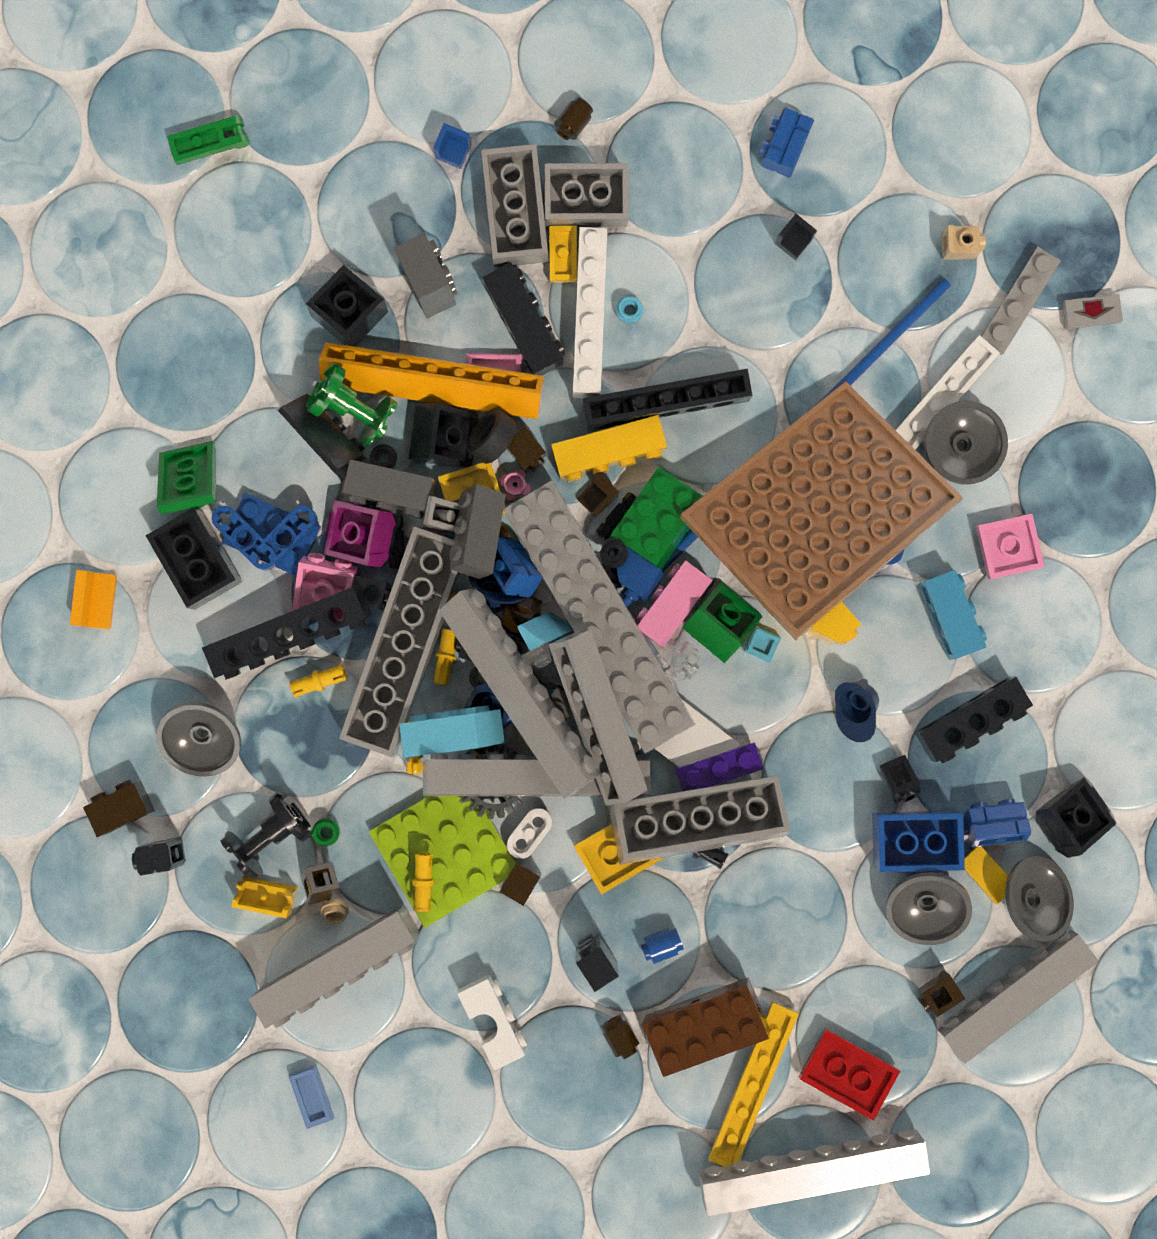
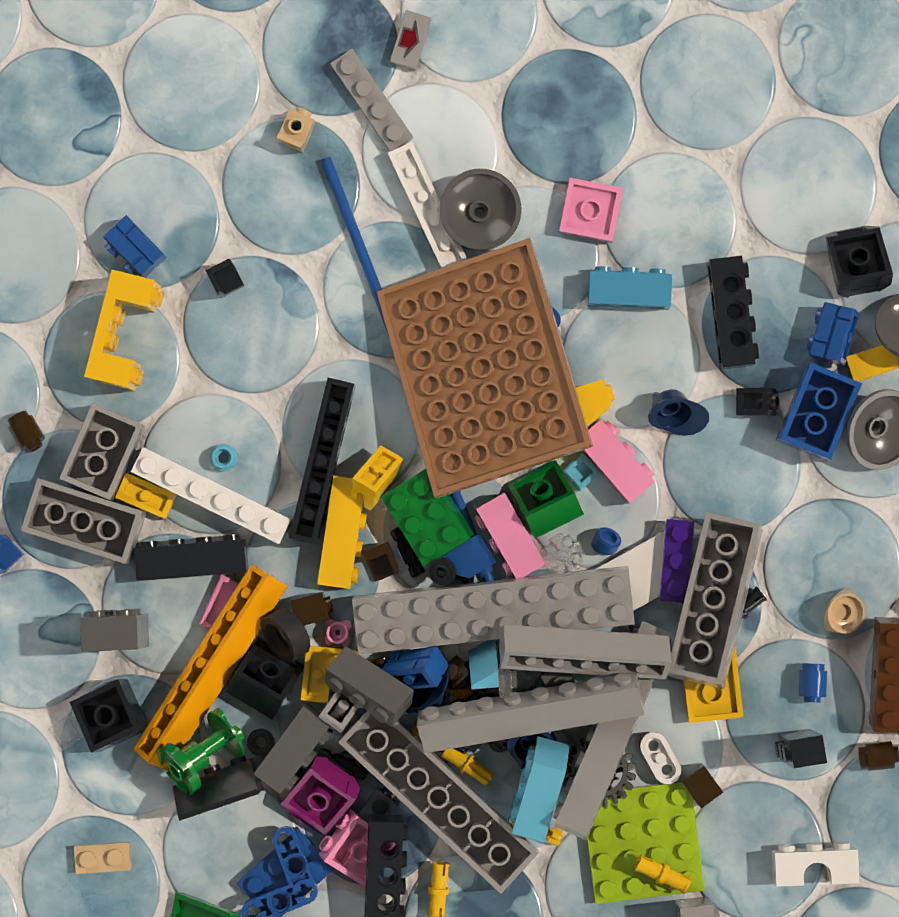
camera: 65 degrees left, 0 degrees up
(215, 361) = (102, 857): none -> tan plate
(675, 455) = (377, 476): none -> yellow hinge
(707, 695) = (606, 541): none -> blue tile
(739, 947) = (844, 613): none -> tan piece
(740, 144) = (128, 291): none -> yellow plate
(787, 673) = (617, 462): none -> bright pink brick

